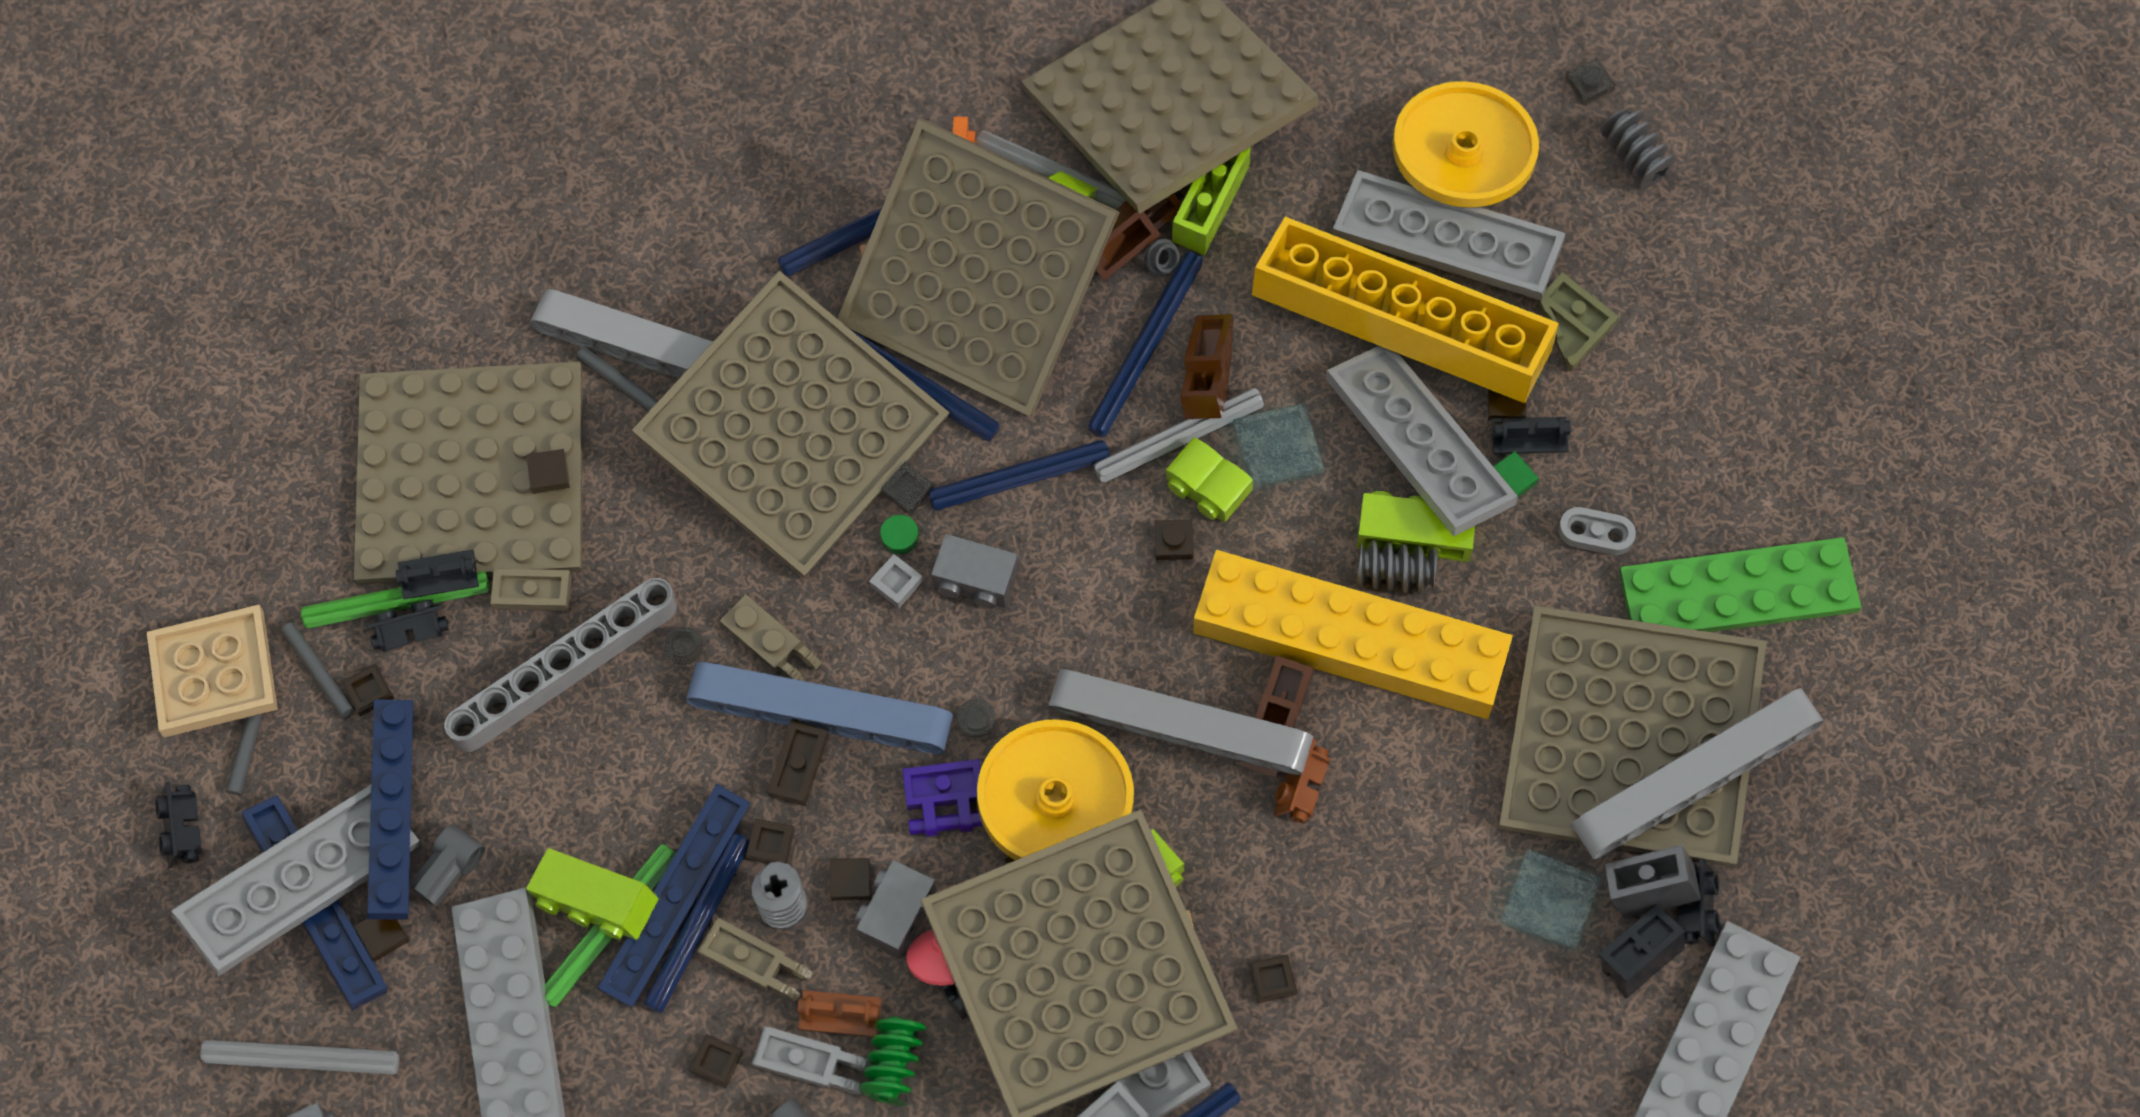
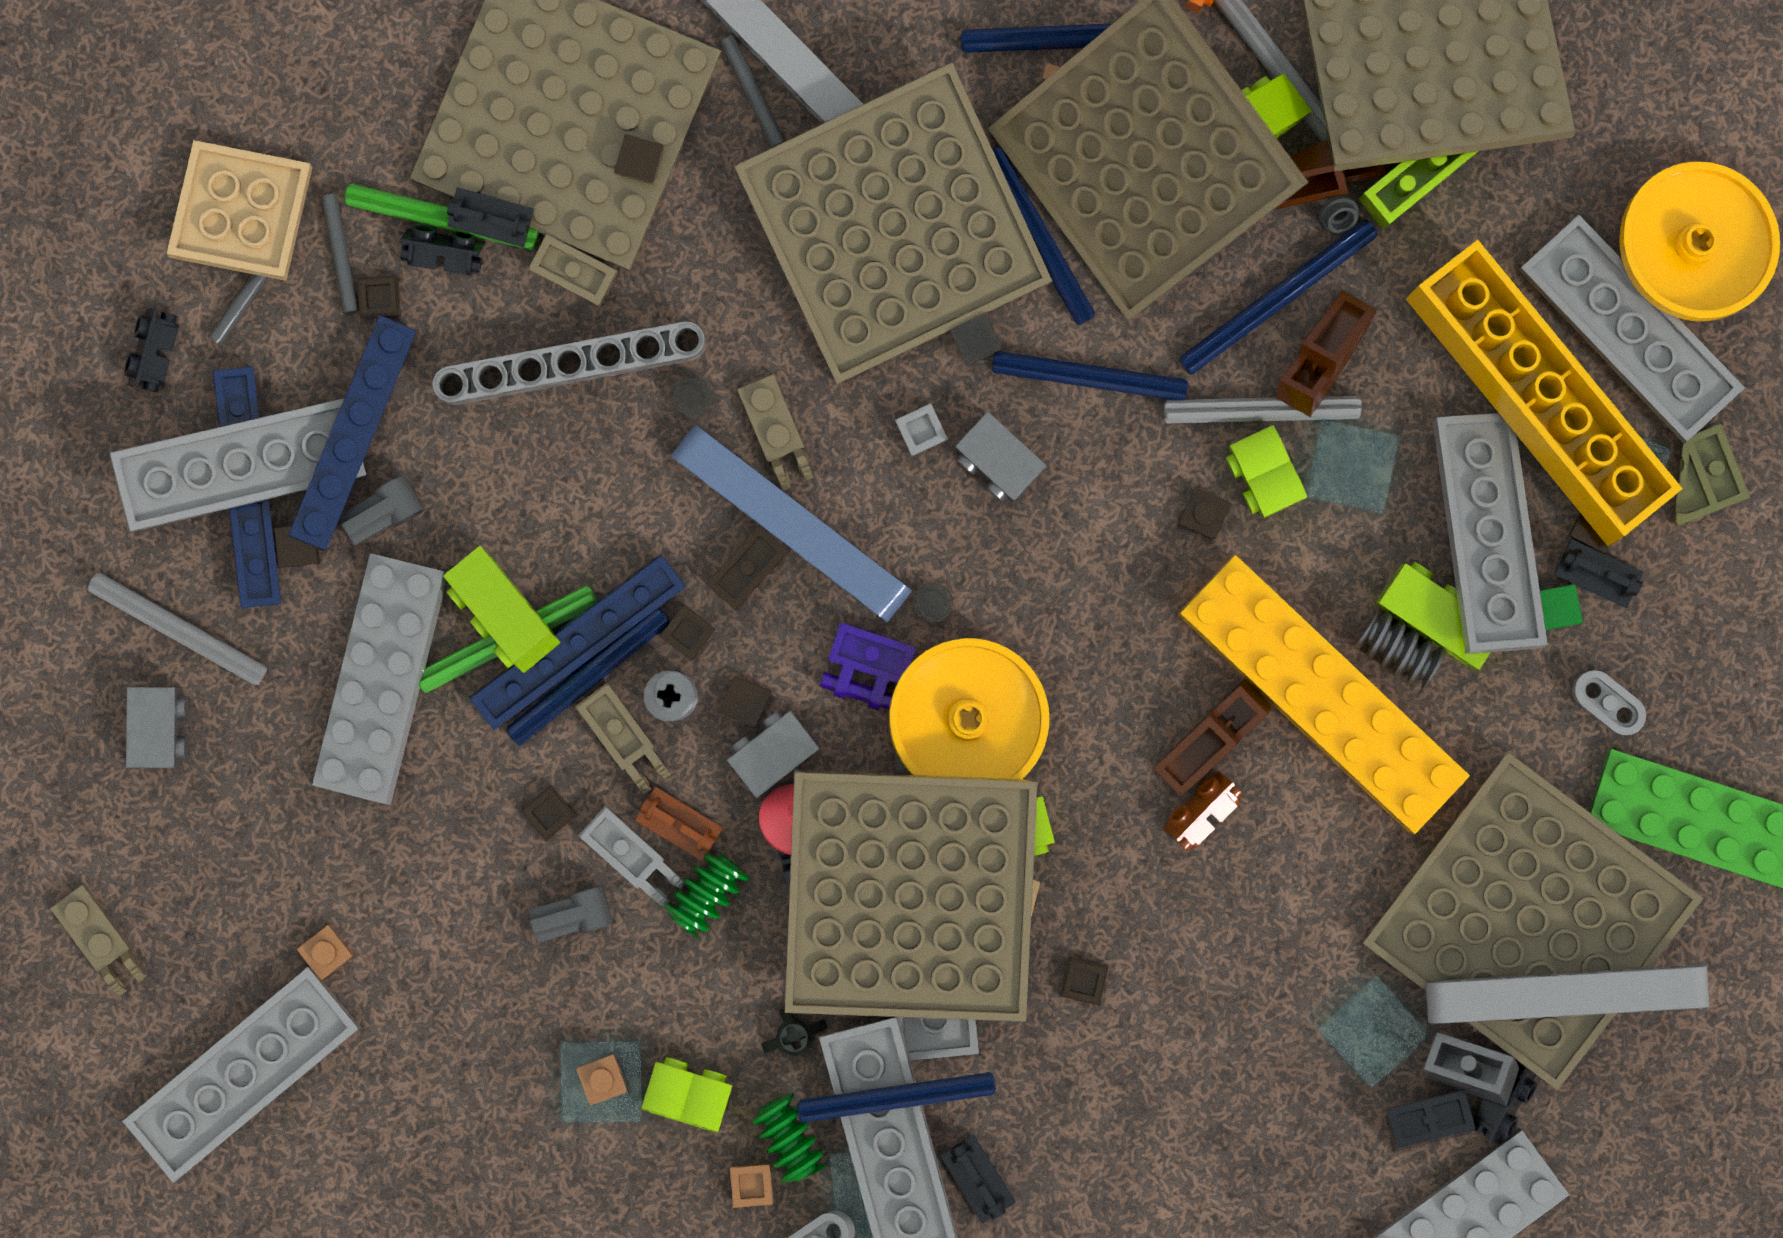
camera: 25 degrees right, 20 degrees up
(899, 534) = (947, 381): green tile -> none
(1181, 722) = (1118, 706): light grey beam -> none

